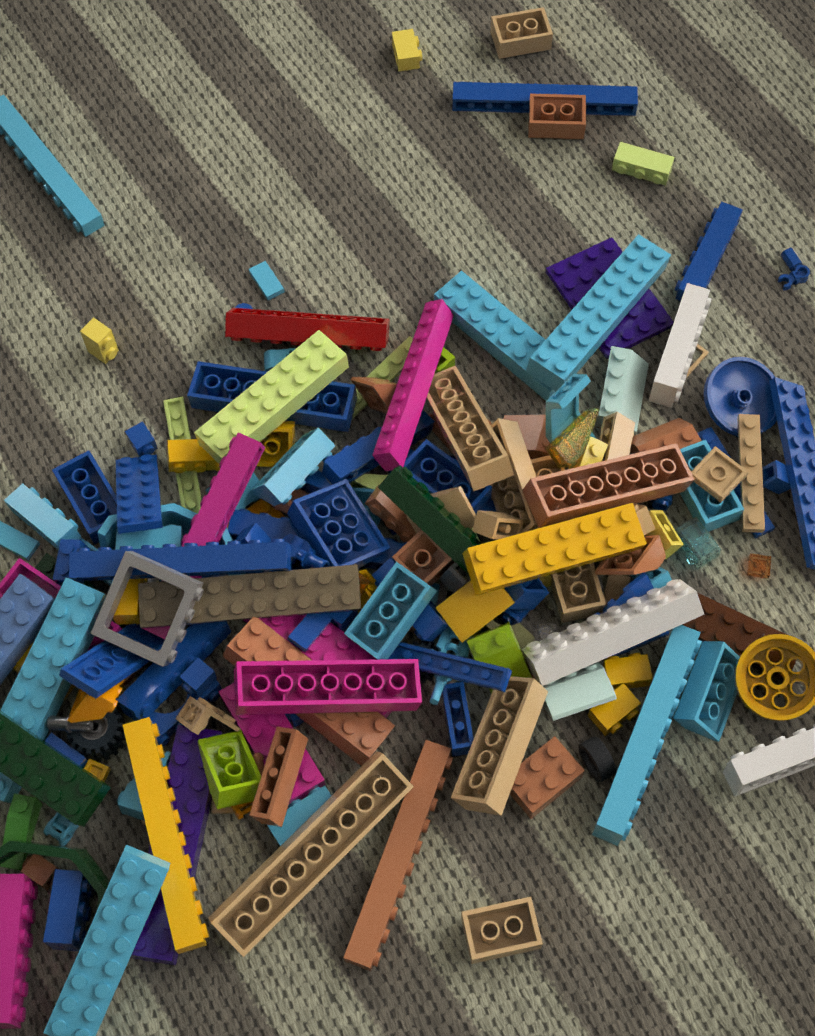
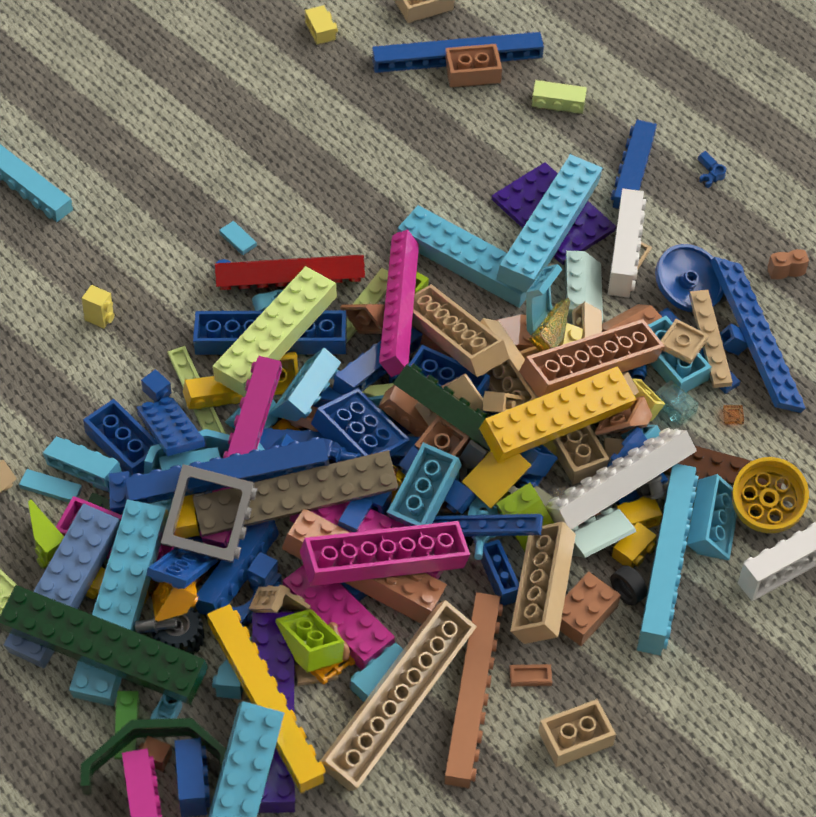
camera: 15 degrees left, 10 degrees down
(279, 776) = (357, 635): nougat brick -> none
(467, 846) = (530, 675): none -> nougat tile
(648, 649) = (652, 489): none -> dark grey piece

